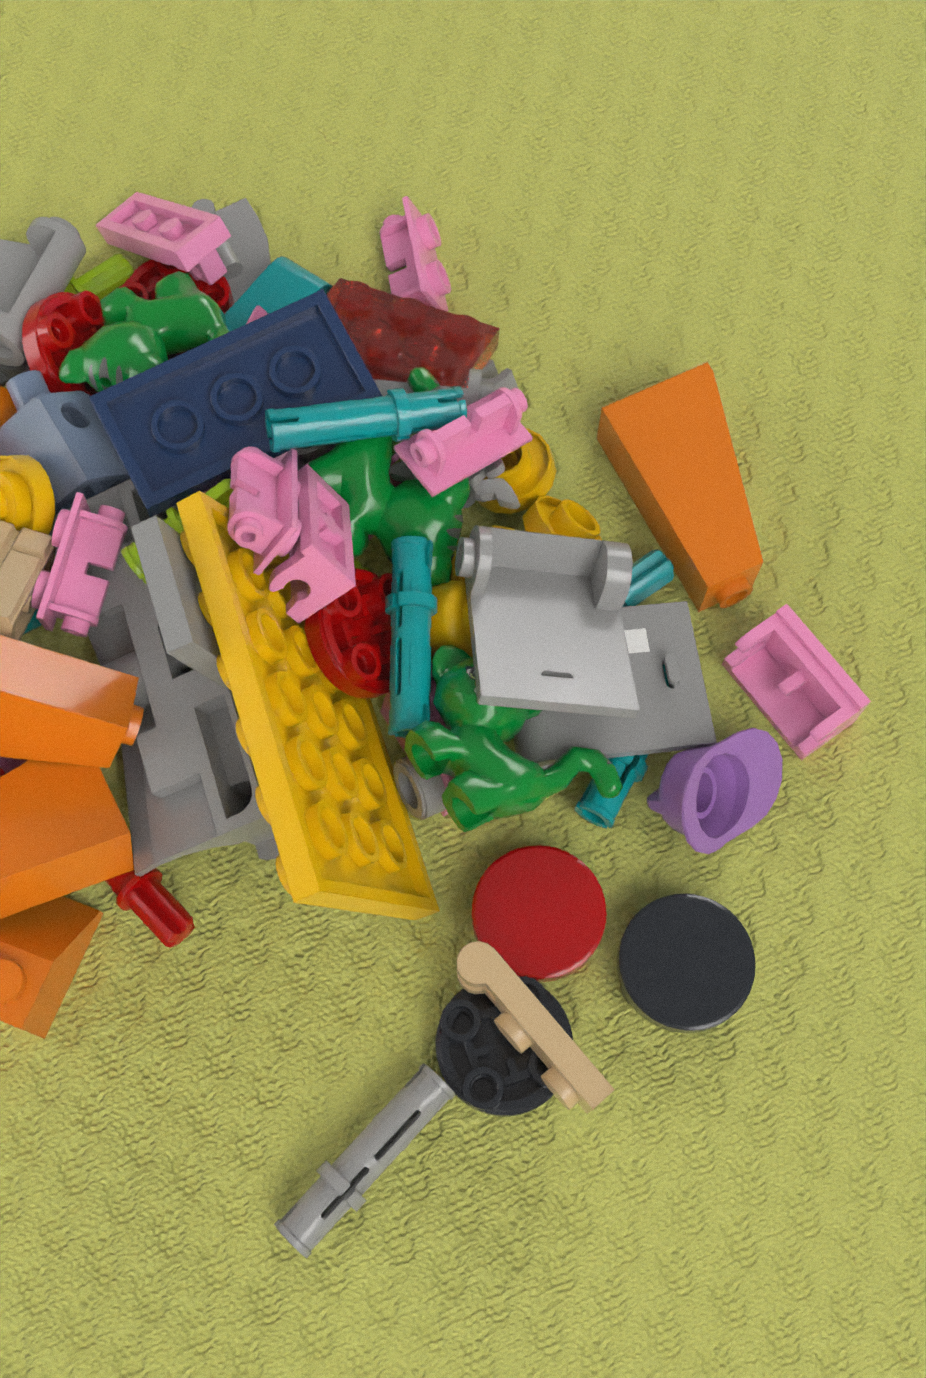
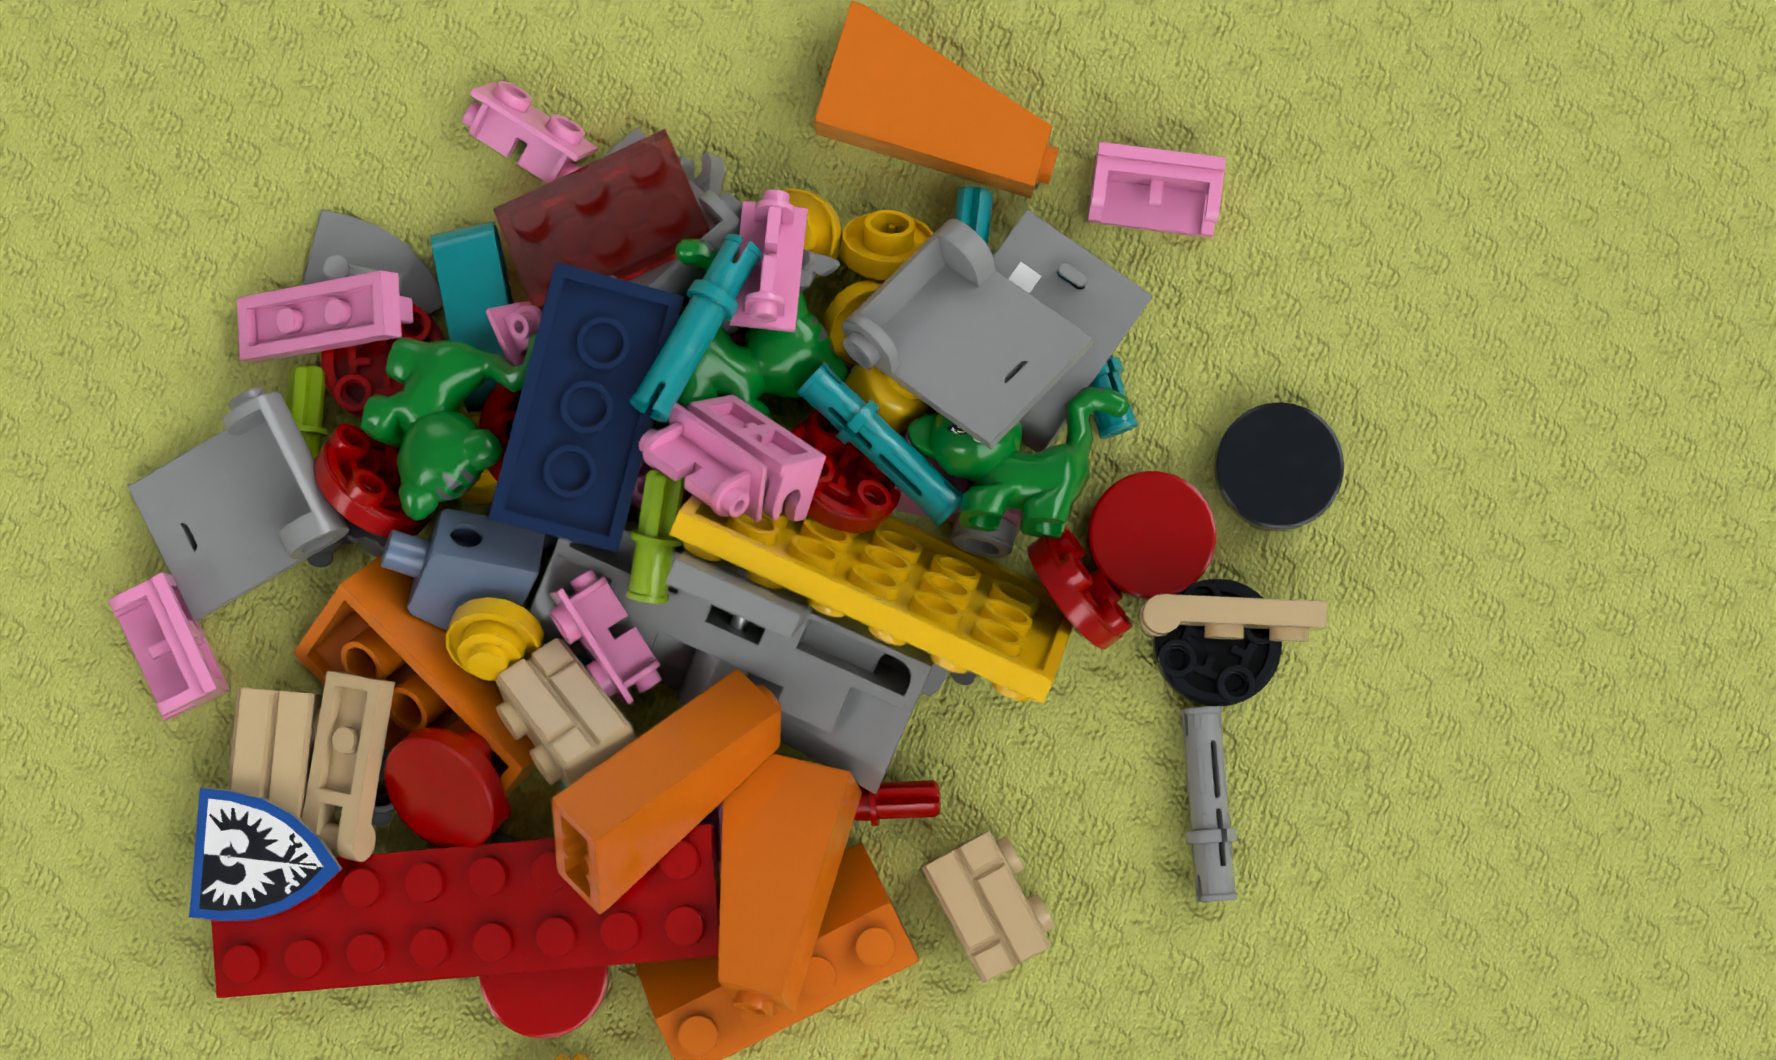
camera: 45 degrees left, 15 degrees up
(125, 1050) = (988, 905): none -> tan brick
(437, 886) = (1078, 593): none -> red tile
(719, 788) = (1185, 327): medium lavender piece -> none

